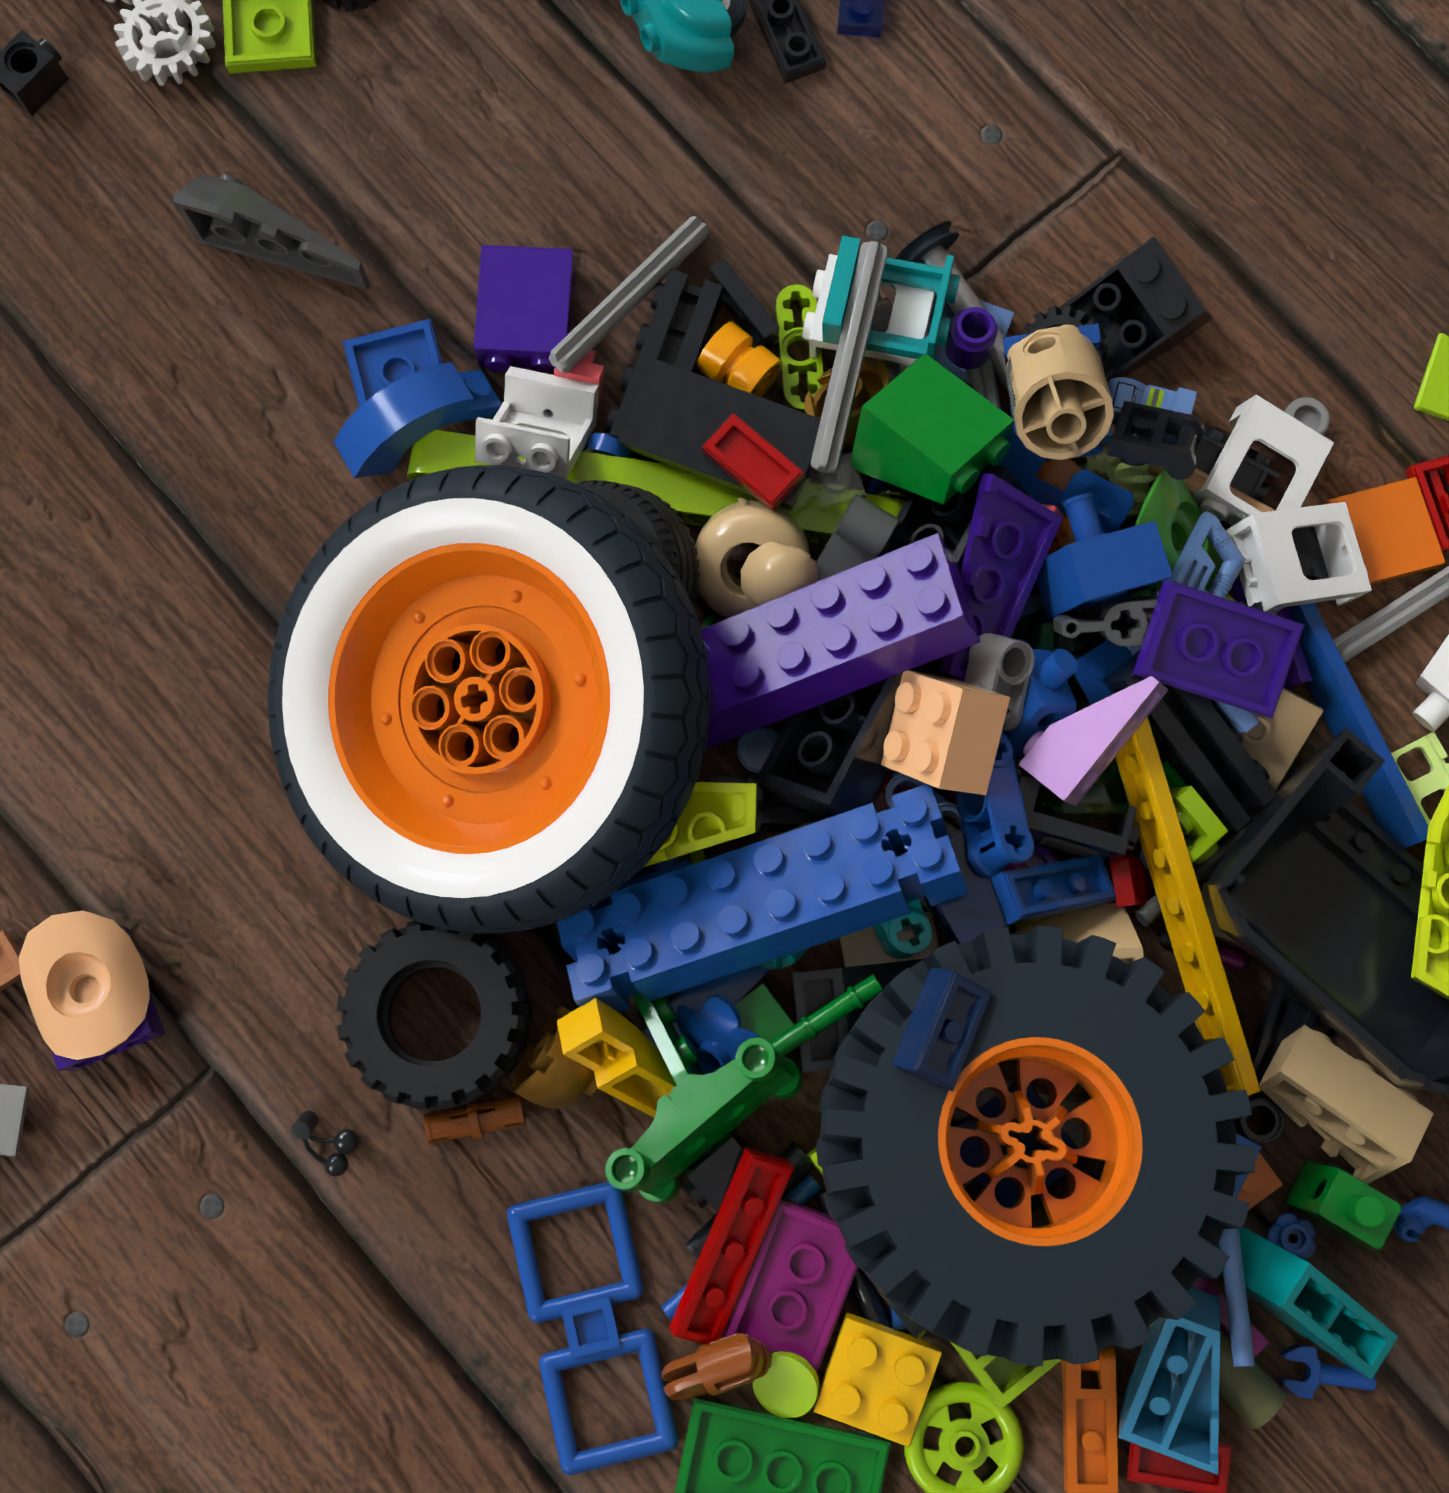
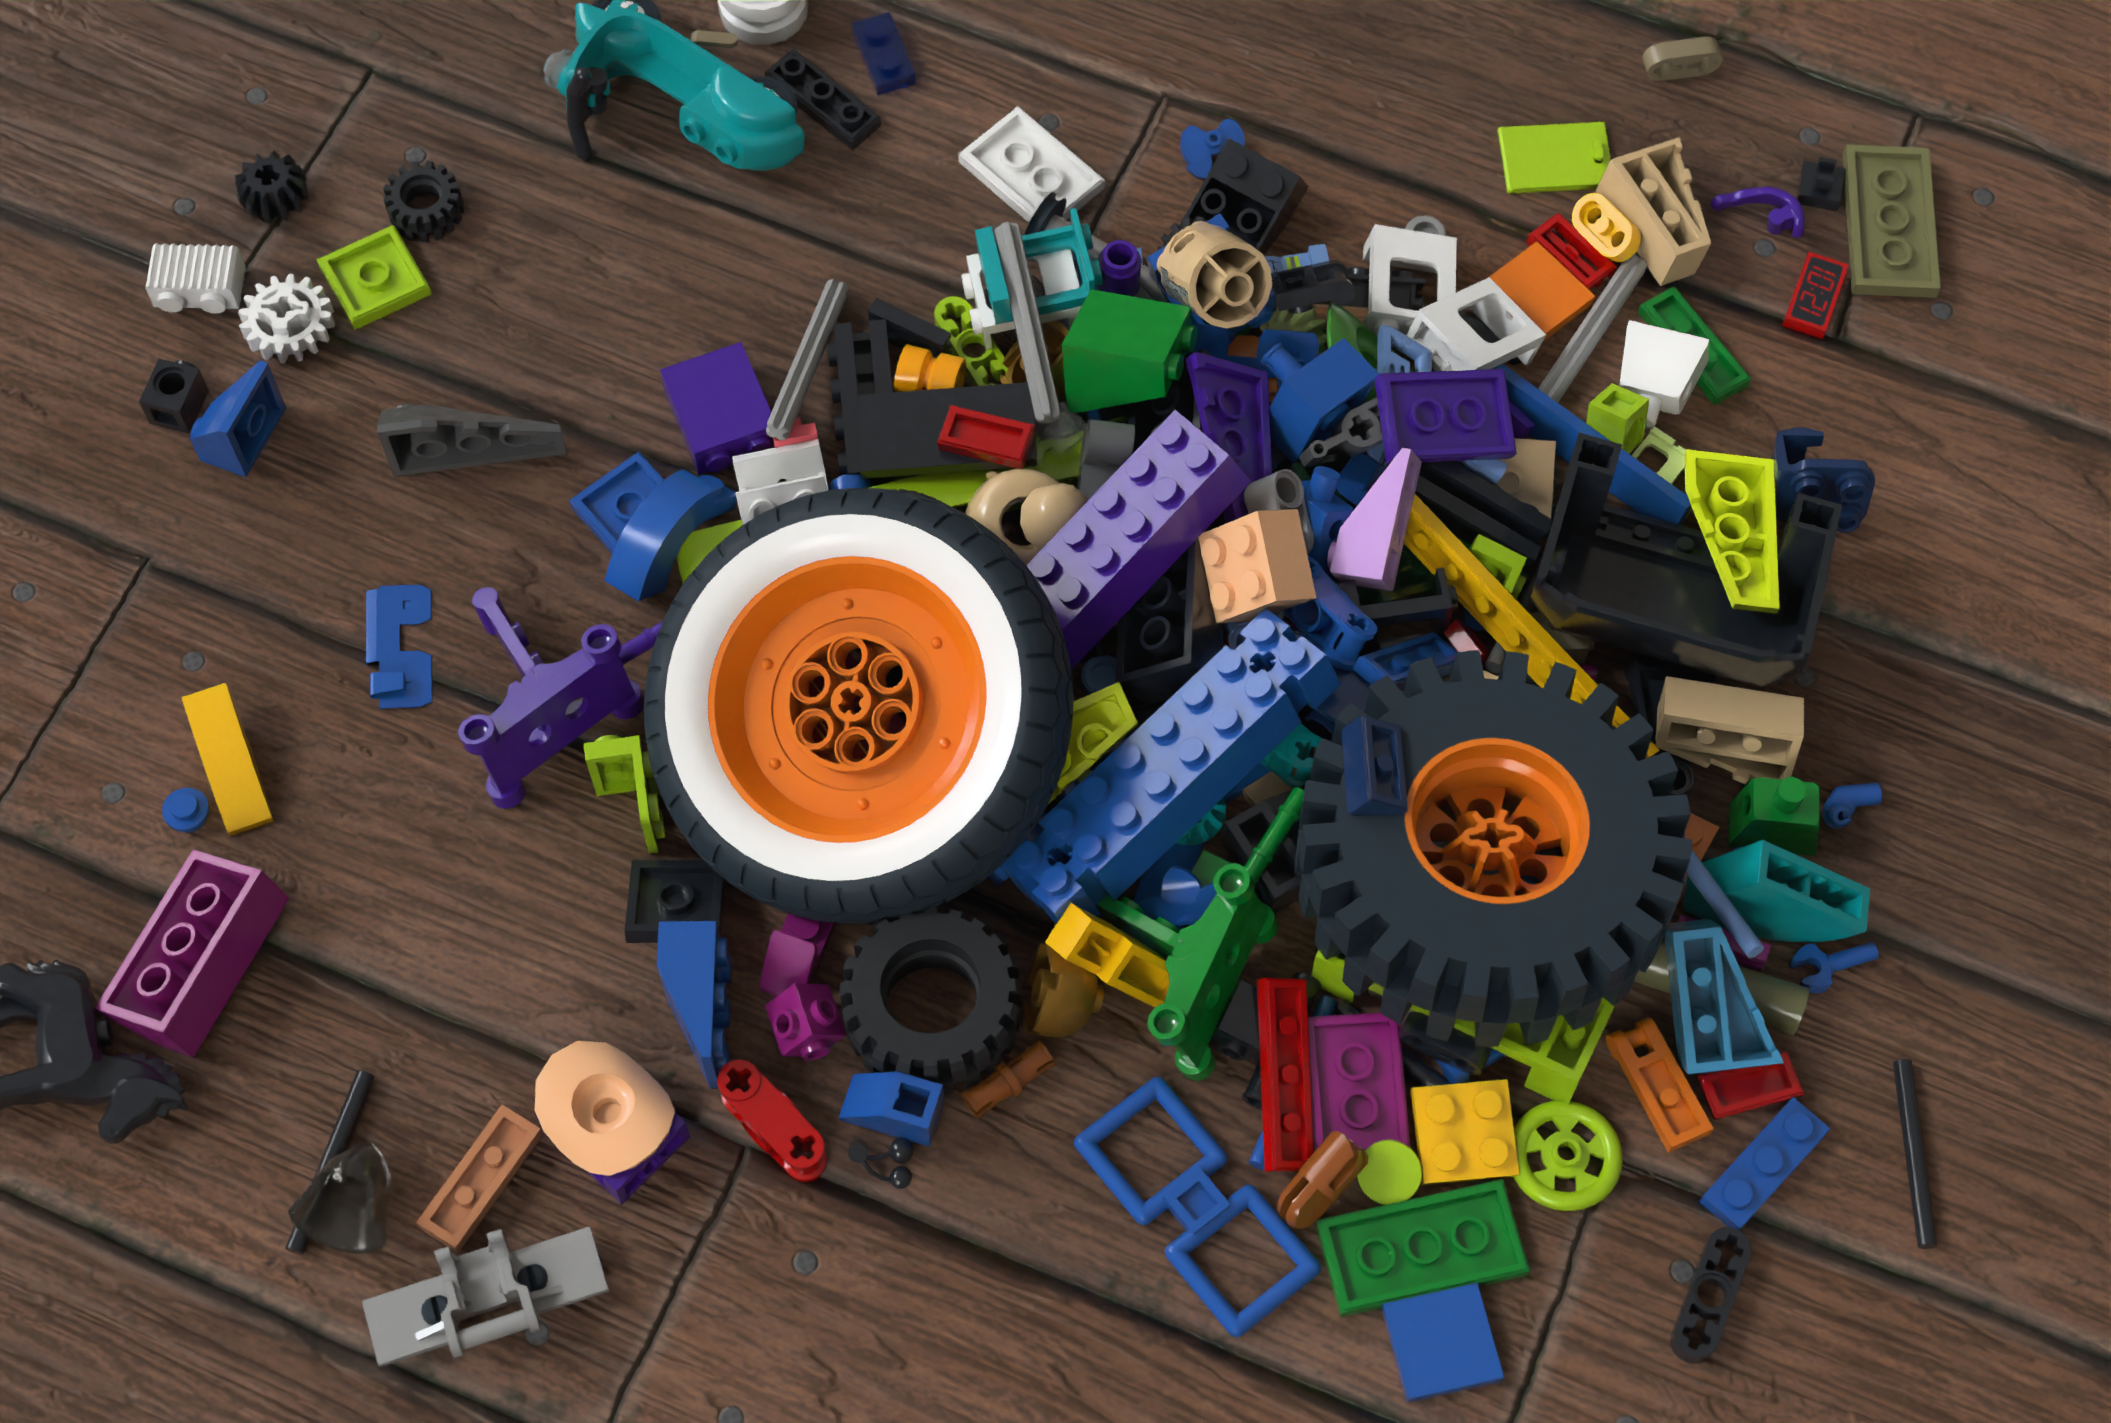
camera: 25 degrees left, 15 degrees down
(73, 127) = (239, 421): none -> blue slope
(112, 439) = (403, 675): none -> blue piece
(214, 552) = (539, 712): none -> dark purple piece
(216, 912) = (694, 978): none -> blue slope
(237, 1061) = (772, 1120): none -> red piece
(242, 803) = (671, 893): none -> black hinge
(248, 639) = (622, 767): none -> lime bracket
(310, 979) = (805, 1021): none -> magenta brick
(331, 910) = (794, 953): none -> magenta slope
(351, 1104) = (894, 1105): none -> blue slope
(948, 177) = (1027, 164): none -> white tile
(1126, 225) = (1199, 145): none -> blue piece
(1402, 710) = (1619, 416): none -> lime brick

